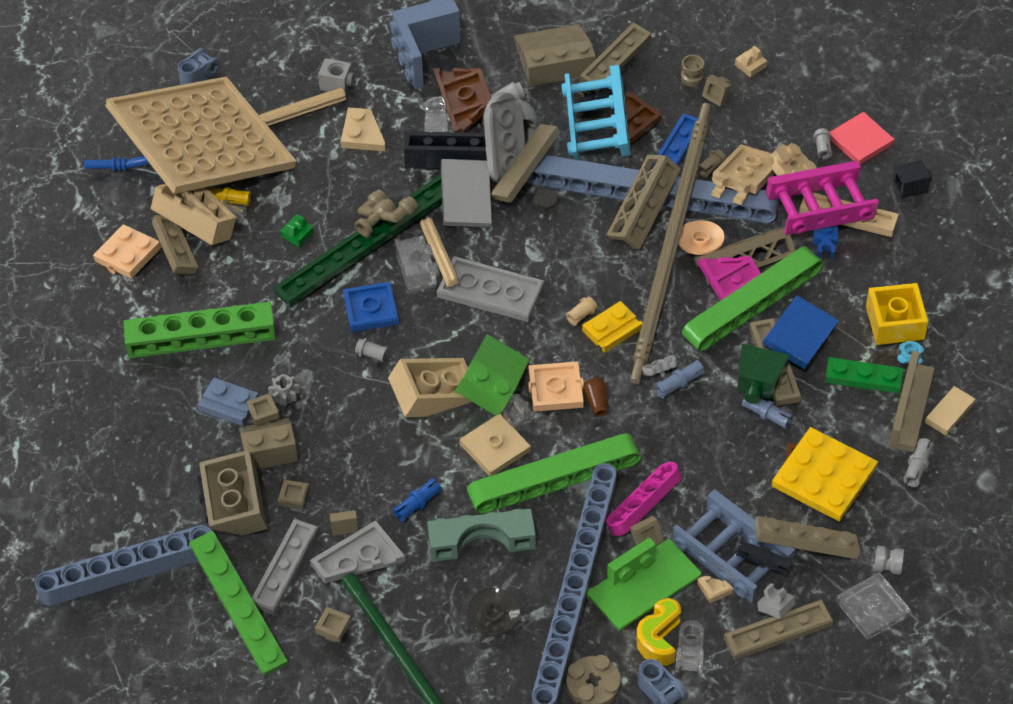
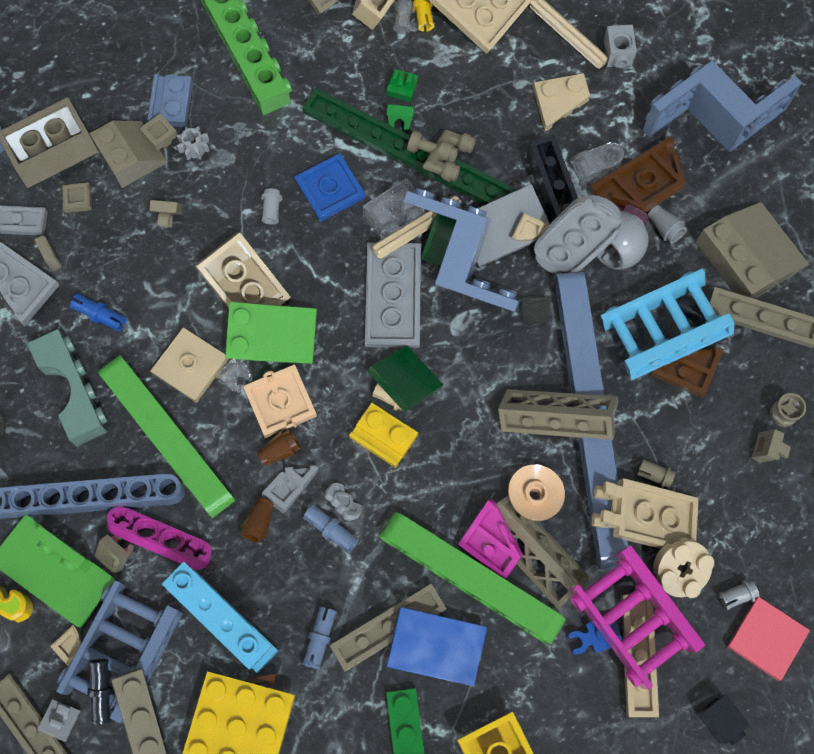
camera: 70 degrees right, 20 degrees up
(326, 235) = (402, 112): none -> green tile
(343, 425) = (166, 211): none -> dark tan tile
(458, 237) = (438, 240): none -> dark green slope
(478, 174) = (529, 228): none -> tan tile
(481, 214) = (464, 250): none -> sand blue bracket
(525, 163) = (565, 271): dark tan tile -> none
(572, 293) = (405, 378): none -> dark green tile
(631, 402) = (288, 486): none -> light grey slope
(656, 427) = (257, 521): none -> reddish brown cone
(670, 244) = (519, 460): dark tan axle -> none
(679, 139) = (676, 427): blue tile -> none
(736, 456) = (220, 617): none -> medium azure fence
(760, 372) = (349, 615): dark green torso -> none

